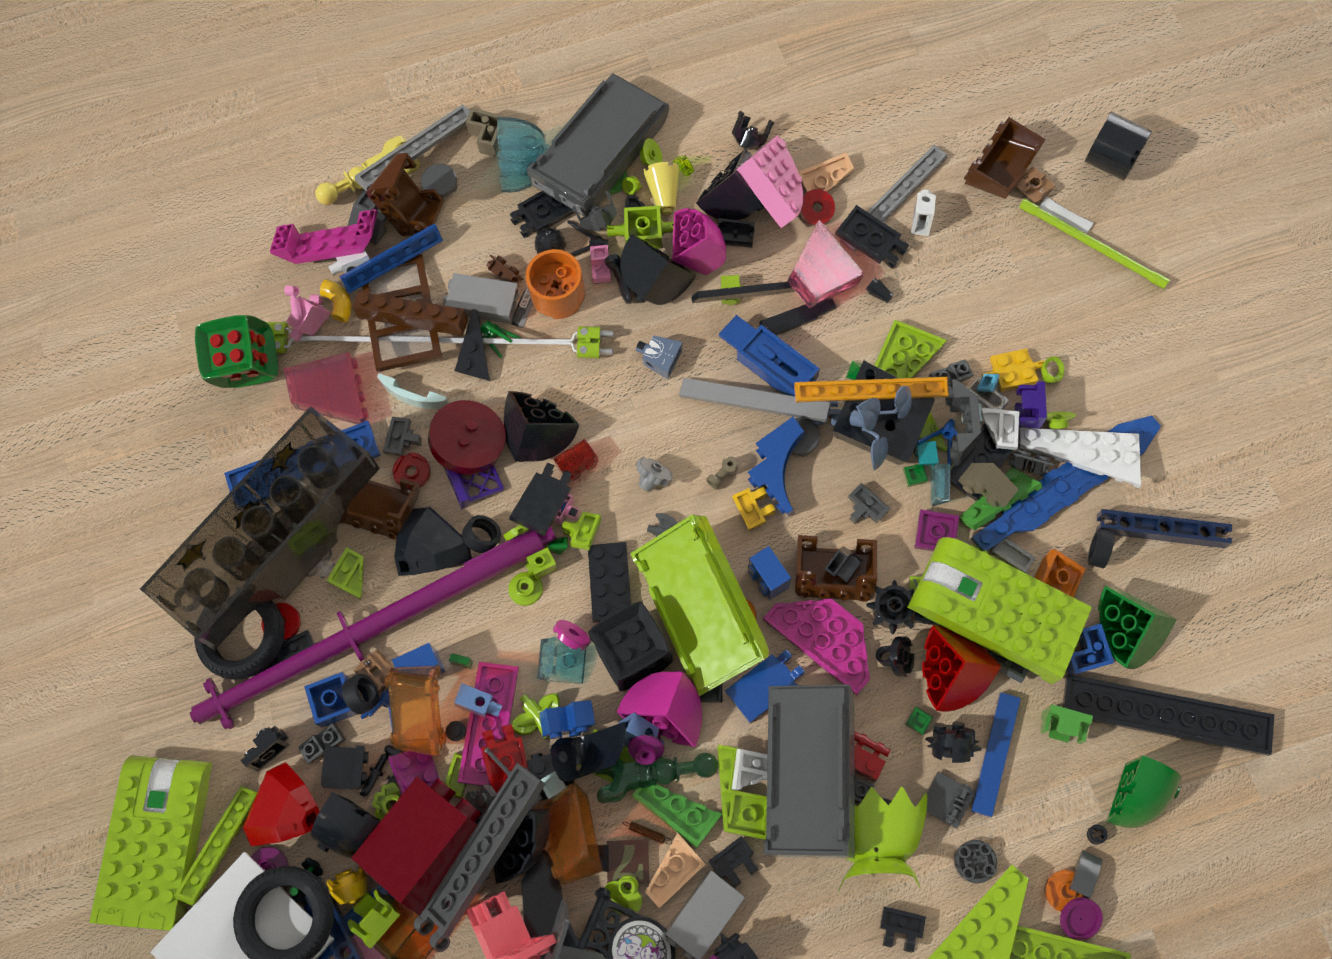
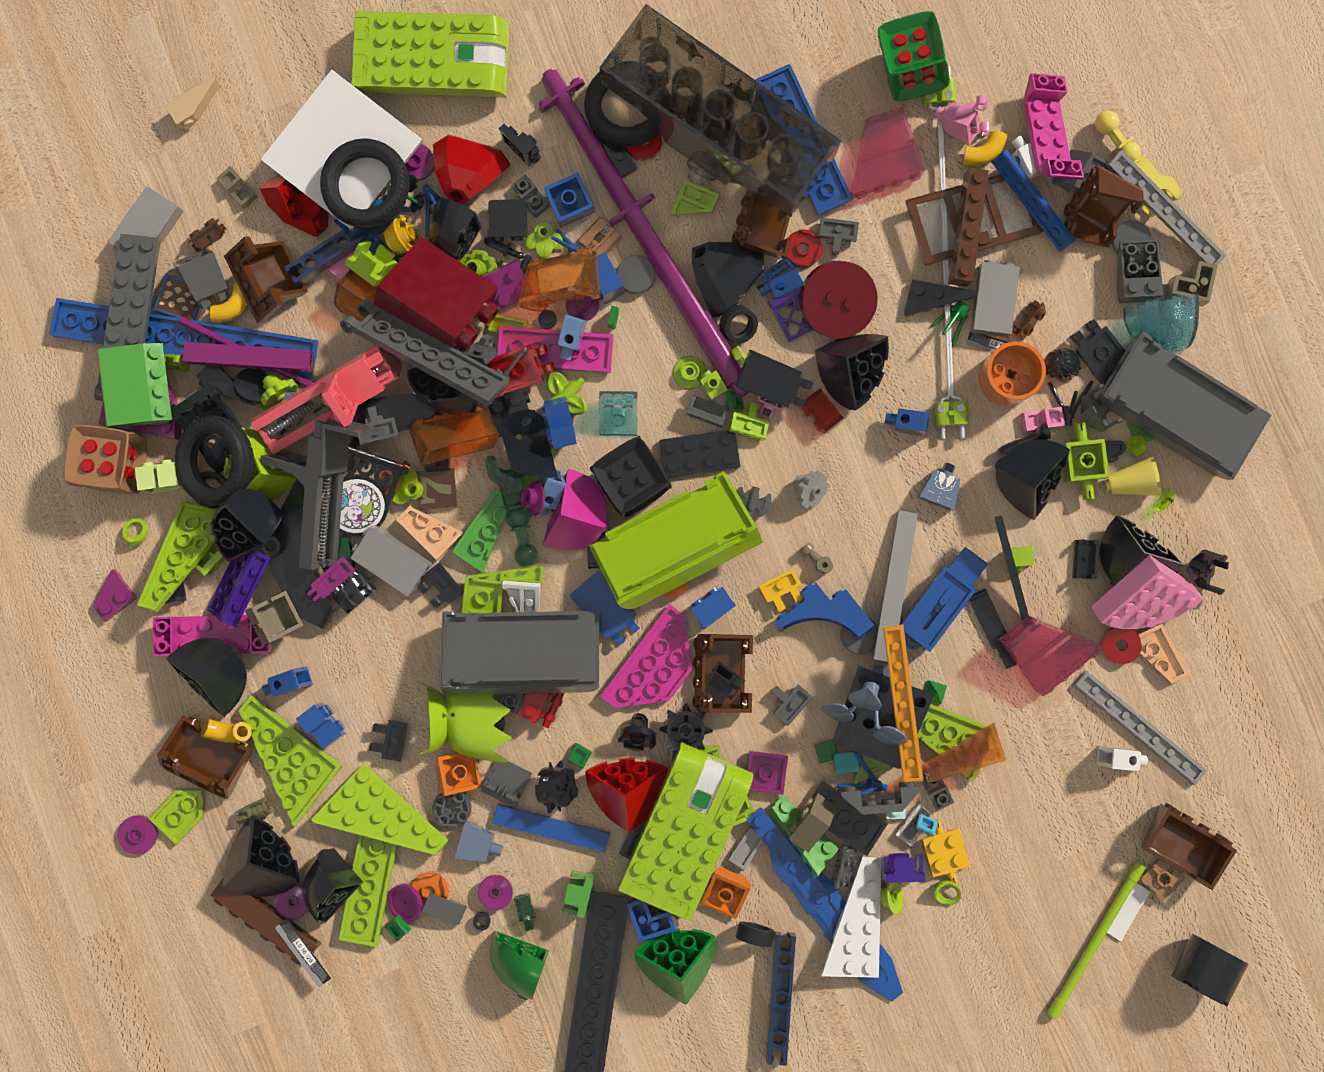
camera: 85 degrees right, 15 degrees up
(216, 847) = (429, 113): lime tile -> none
(310, 851) = (430, 199): none -> blue plant
(353, 698) = (570, 217): black tyre -> none
(374, 731) = (543, 243): none -> lime plate
(418, 632) = (636, 274): none -> dark grey tile
(433, 400) = (878, 260): light aqua slope -> none
(440, 490) = (780, 279): none -> blue torso
(451, 687) = (586, 312): none -> magenta piece
(470, 174) = (1139, 271): none -> dark grey slope
(548, 919) = (378, 421): none -> dark grey hinge
(553, 785) = (498, 413): light aqua plate -> none
(567, 571) = (707, 411): none -> dark grey hinge
(571, 635) = (640, 427): dark pink tile -> none
(594, 371) = (917, 422): none -> blue torso
(644, 831) = (463, 505): reddish brown piece -> none
(650, 152) = (1175, 464): lime piece -> none
(697, 241) = (1068, 518): dark pink brick -> none
(872, 237) = (1089, 703): black tile -> none
(879, 290) = (1027, 712): black cone -> none
(920, 339) = (970, 754): none -> clear orange wedge
(939, 853) = (457, 773): none -> orange slope
(940, 484) = (815, 776): clear light blue slope -> none
(1002, 427) = (877, 839): white wing -> none
(1014, 834) = (476, 843): none -> sand blue torso
(1075, 814) = (486, 894): none -> magenta piece
(1083, 785) = (525, 910): none -> clear green hinge
(1108, 928) = (397, 928): none -> green tile

